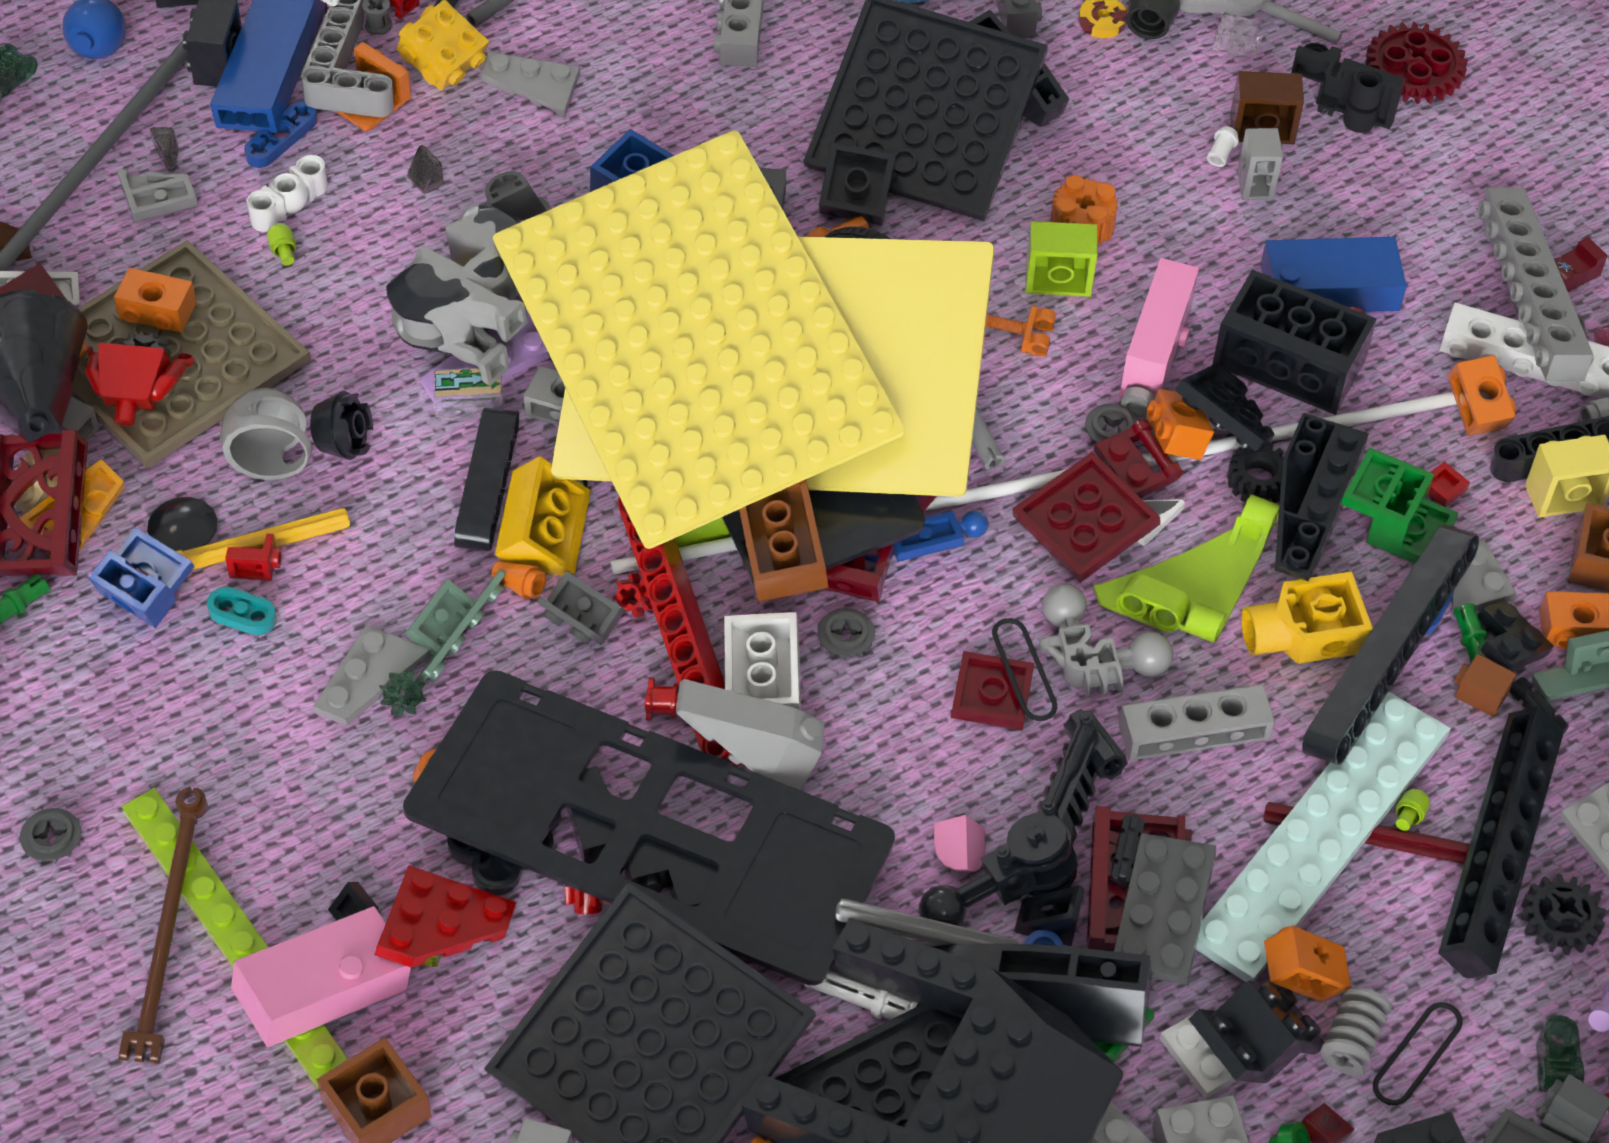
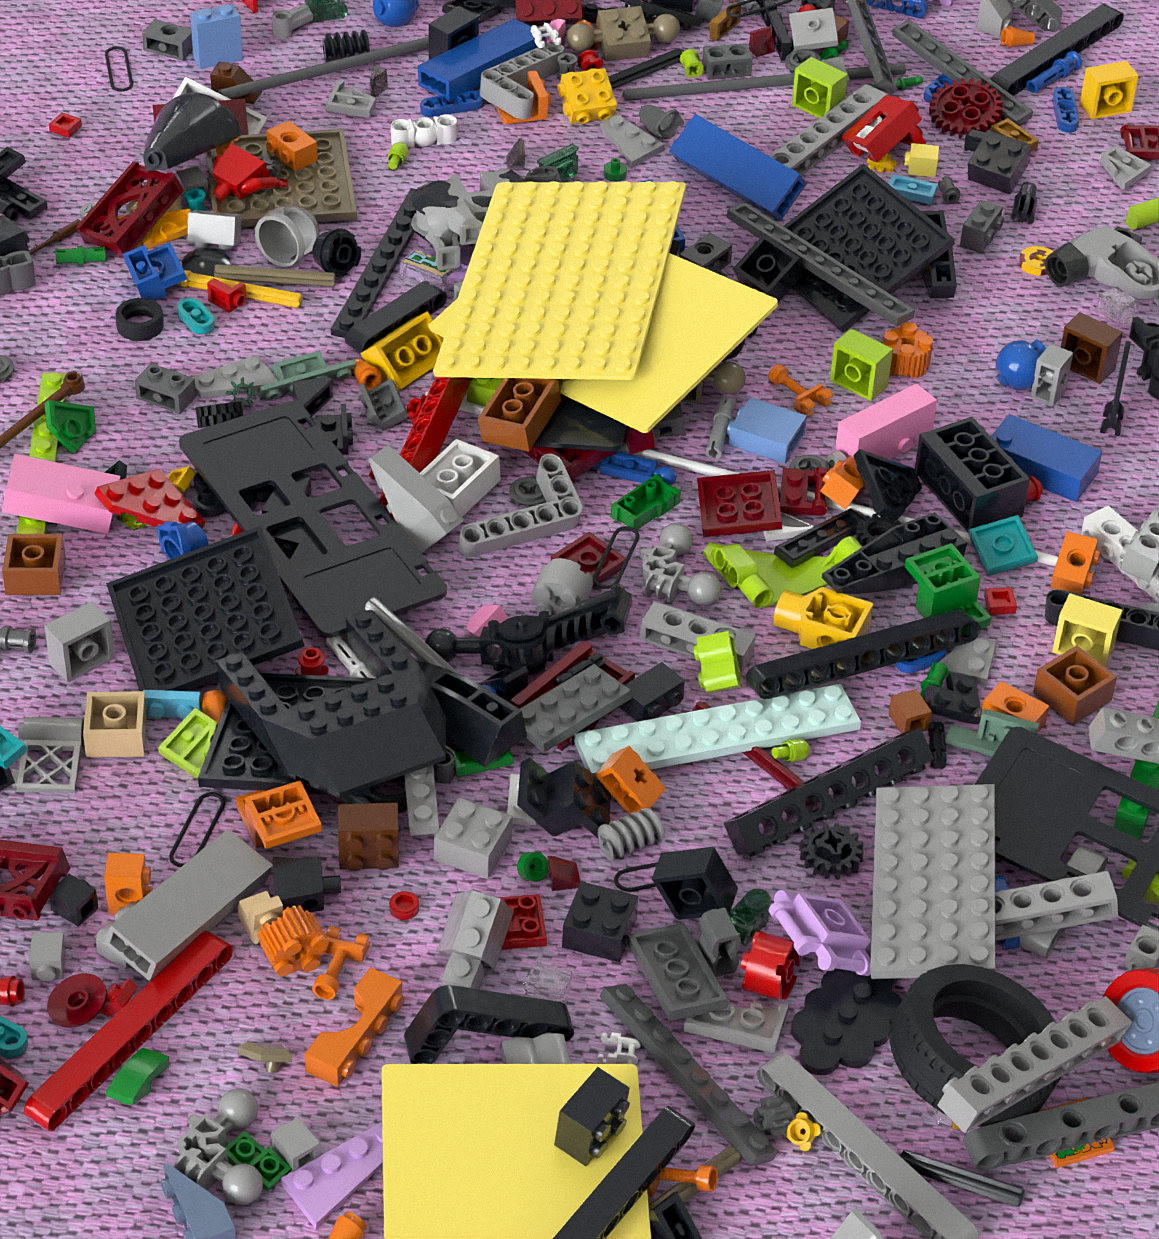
camera: 35 degrees right, 10 degrees down
(83, 113) = (345, 44): none -> black piece
(98, 444) = (195, 199): none -> teal bush
(159, 471) = (214, 228): none -> brick
(177, 678) = (143, 330): none -> black tyre
(233, 863) = (70, 423): none -> green plate
(286, 498) = (272, 275): none -> dark tan axle
(300, 739) = (165, 388): none -> dark grey brick
(398, 410) = (377, 270): none -> black plate
(408, 741) = (218, 413): none -> black tyre
(436, 859) = (181, 478): none -> yellow plate
(482, 647) = (313, 393): none -> black slope
(494, 160) = (564, 160): none -> clear green plate
(524, 951) = (182, 538): none -> blue piece
(548, 38) = (660, 122): none -> dark grey piece
(553, 132) = (615, 170): none -> green tile
(556, 673) = (336, 429): none -> black bracket
(698, 59) = (737, 167): none -> blue brick
(820, 1031) = (311, 662): none -> red brick
(892, 676) = (529, 518): none -> light grey beam
(912, 147) = (824, 265): none -> dark grey plate
(983, 574) = (645, 503): none -> green piece
(1011, 751) = (561, 586): none -> light grey brick
(1028, 400) = (767, 430): none -> medium blue brick
(1201, 511) = (818, 538): none -> black tile
(1218, 167) = (1018, 363): none -> blue brick
(1222, 822) = (654, 693): none -> black brick
(1258, 745) = (718, 662): none -> lime brick
(1354, 154) = (1115, 406): none -> black flag
(1389, 412) = (1002, 545): none -> teal tile
(1494, 1056) = (694, 882): none -> black brick

